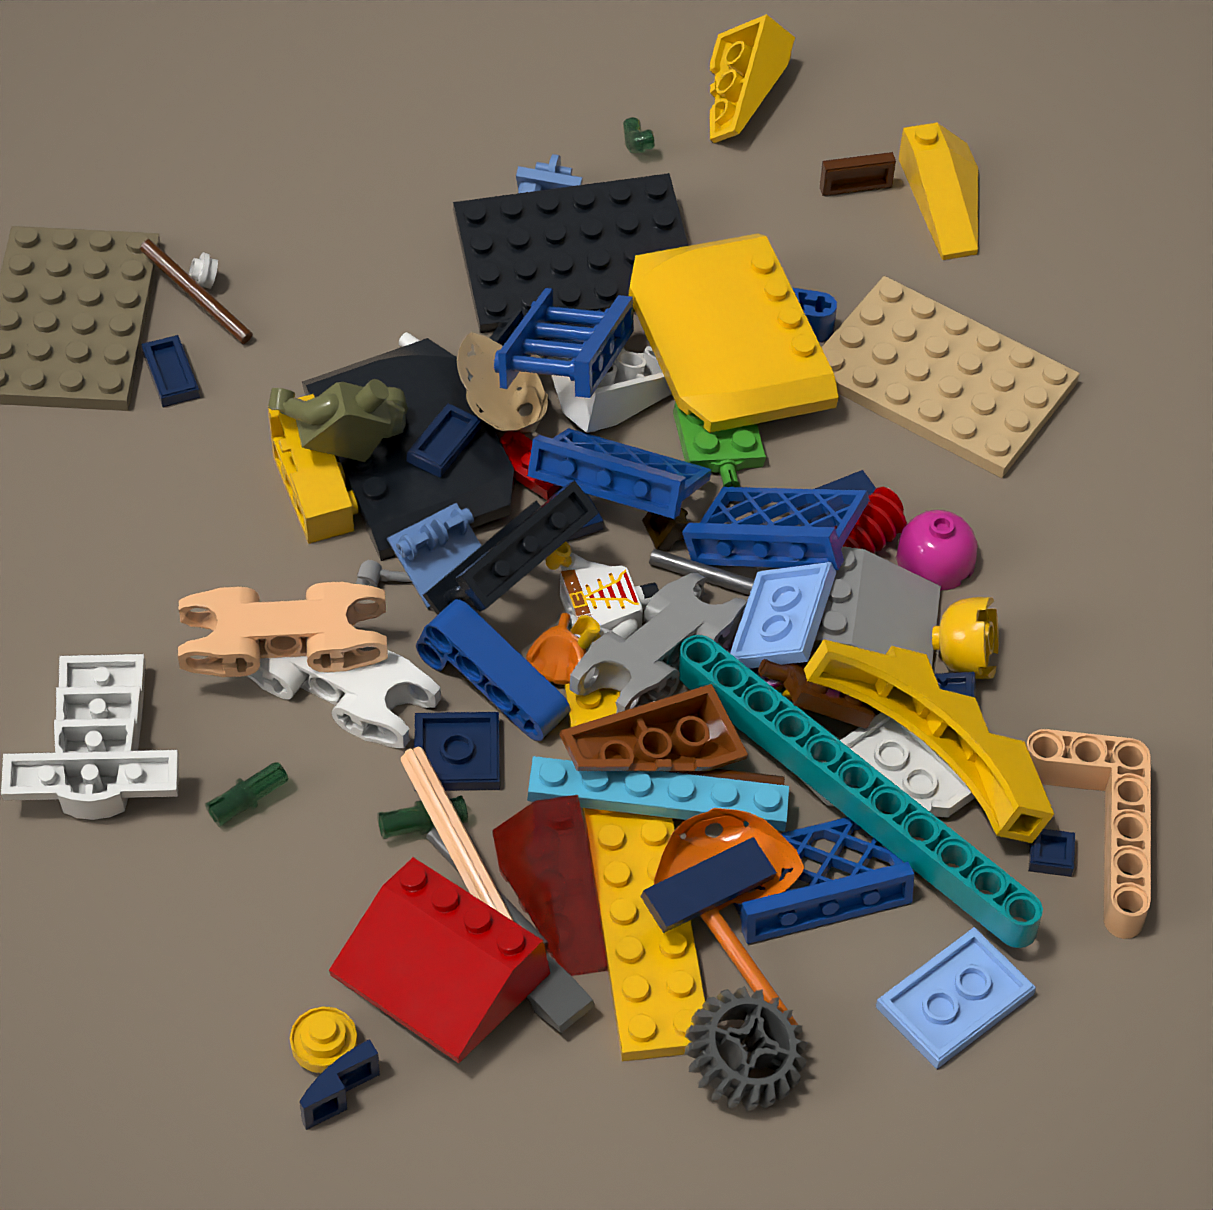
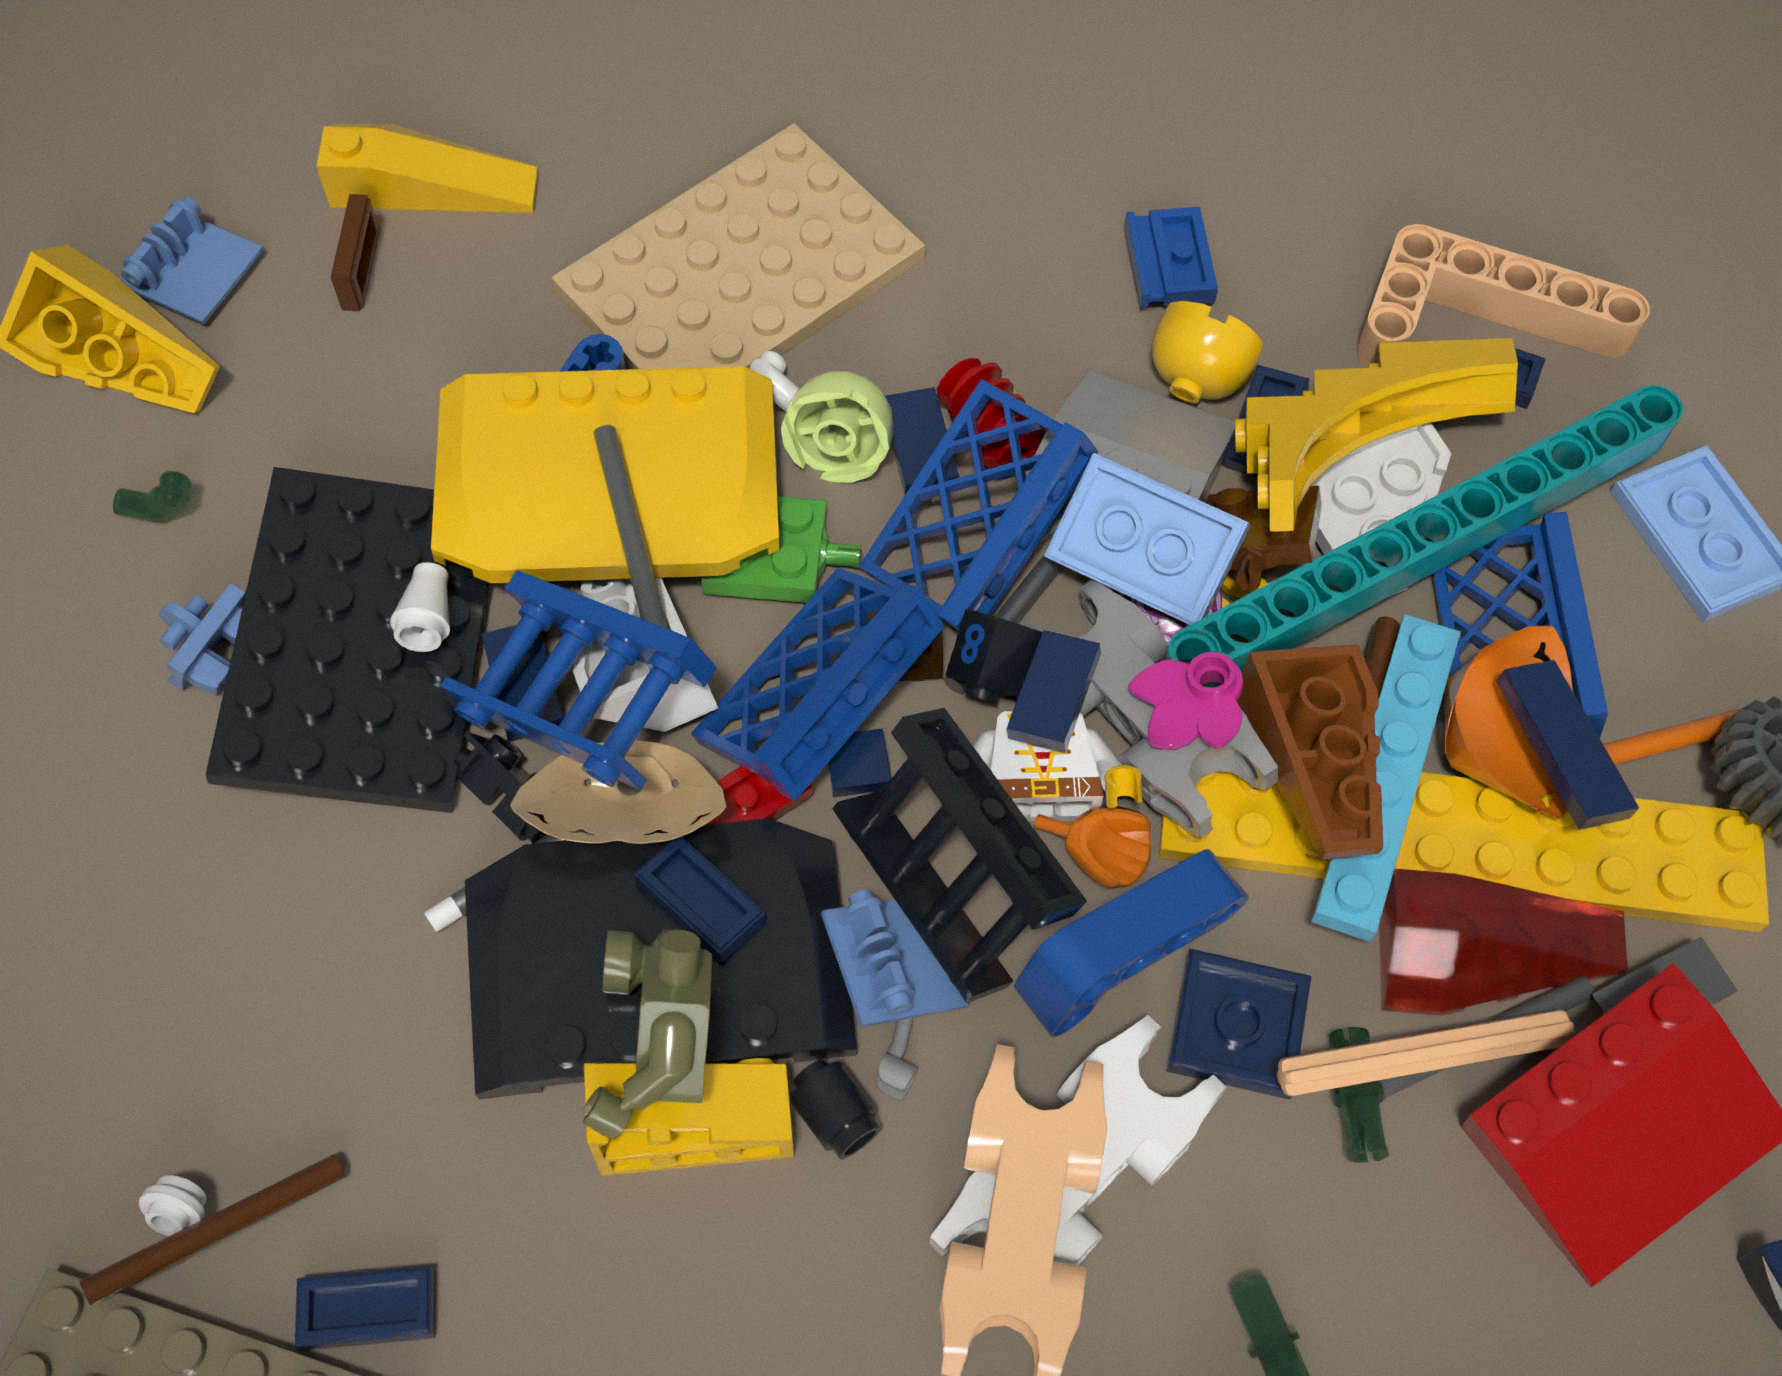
camera: 75 degrees left, 10 degrees up
(322, 1037) = (1723, 1316): yellow plate -> none
(337, 546) = (834, 1108): none -> black brick
(594, 265) = (423, 611): none -> white cone
(646, 585) = (1054, 691): none -> dark blue tile
(659, 651) = (1188, 708): none -> dark pink plate
(668, 557) = (992, 655): none -> black brick
(678, 339) = (629, 525): none -> dark grey bar
(817, 102) = (188, 262): none -> medium blue hinge
(824, 444) = (838, 426): none -> yellowish green cylinder
(848, 409) = (773, 366): none -> white arm
(938, 548) = (1039, 350): dark pink cylinder -> none
(1061, 614) = (1171, 256): none -> blue plate

